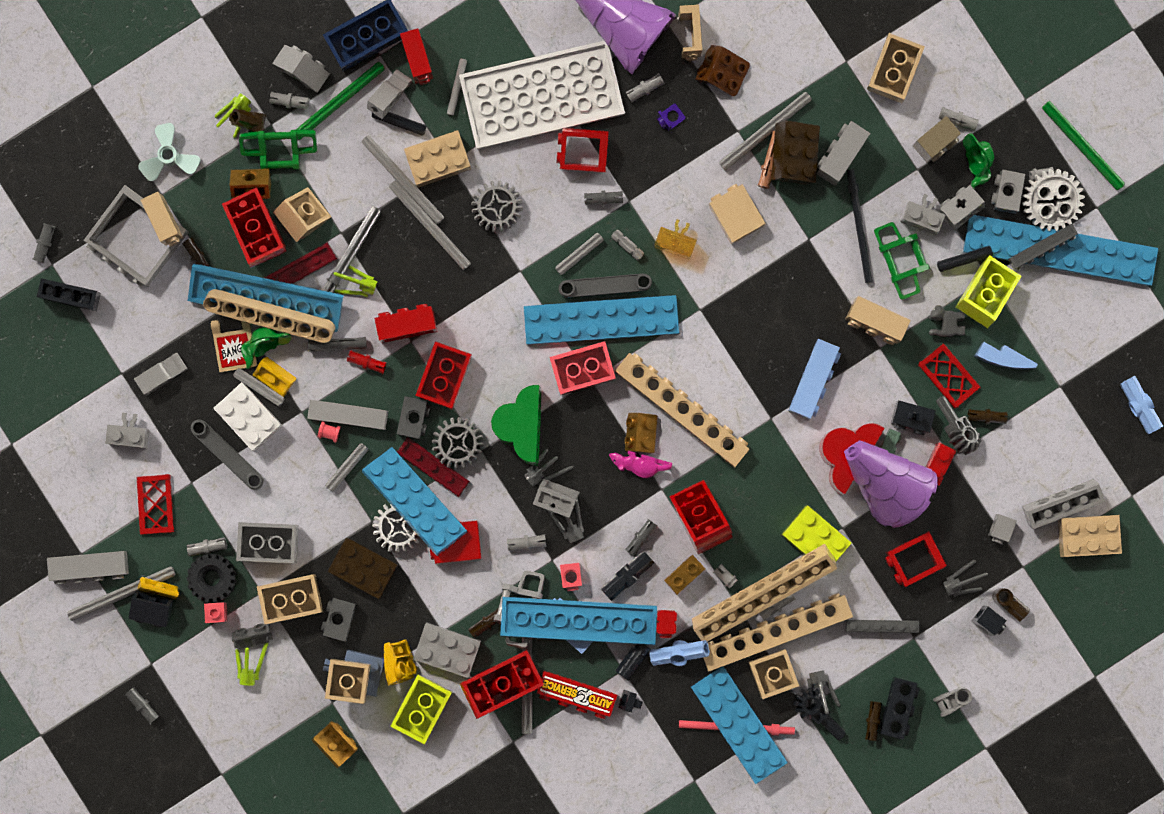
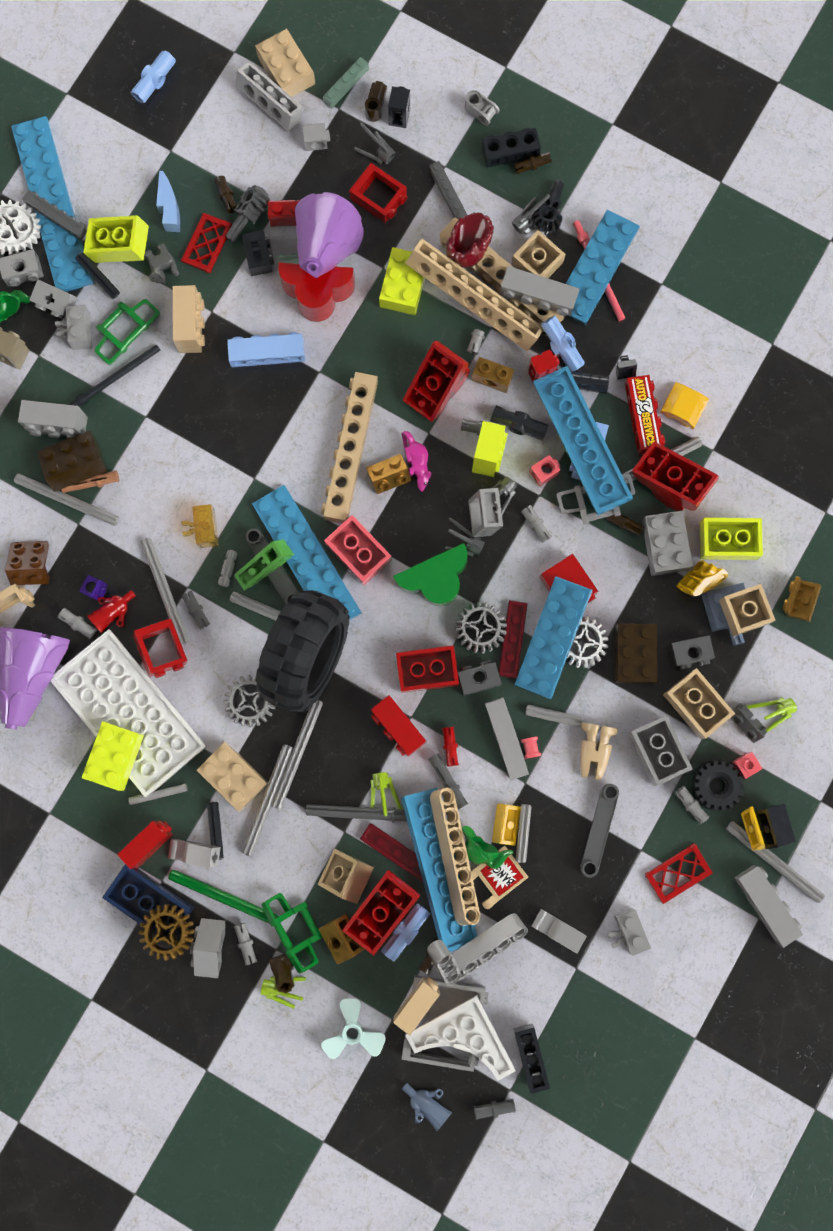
camera: 115 degrees left, 5 degrees down
(80, 185) = (427, 1107): none -> sand blue piece
(120, 253) = (465, 1029): none -> white plate
(180, 294) = (477, 951): none -> light grey beam
(228, 242) = (405, 932): none -> light blue piece
(248, 417) = (556, 828): white brick -> none
(295, 488) = (596, 752): none -> tan piece
(328, 22) = (172, 939): none -> pearl gold gear
(507, 63) = (112, 756): none -> neon yellow brick
(509, 271) = (302, 650): none -> black tyre
(567, 737) = (684, 405): none -> yellow slope
(611, 278) = (264, 563): none -> bright green slope
(613, 531) = (489, 449): none -> neon yellow brick
(637, 179) = (164, 589): none -> light grey axle
(642, 128) = (108, 612): none -> red piece
(736, 213) = (152, 487): tan brick -> none
(742, 652) = (539, 291): none -> light grey brick
(817, 614) = (470, 239): none -> dark red hair
(1044, 585) = (346, 82): none -> sand green piece

